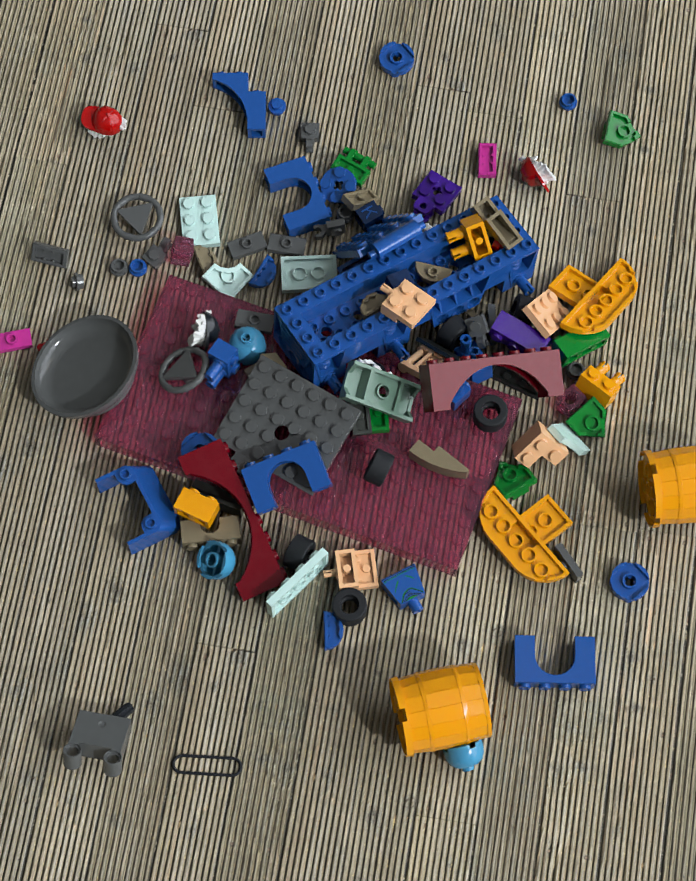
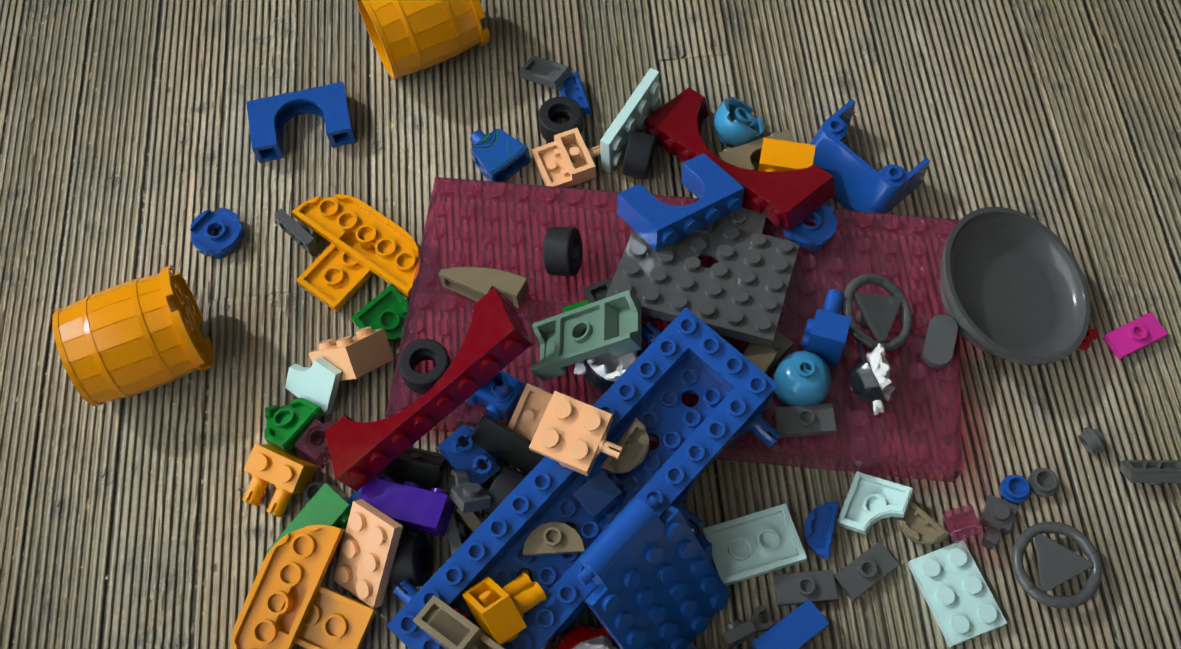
camera: 170 degrees right, 5 degrees down
(150, 349) = (939, 341): none -> dark grey tile
(350, 656) = (545, 72): none -> dark grey tile

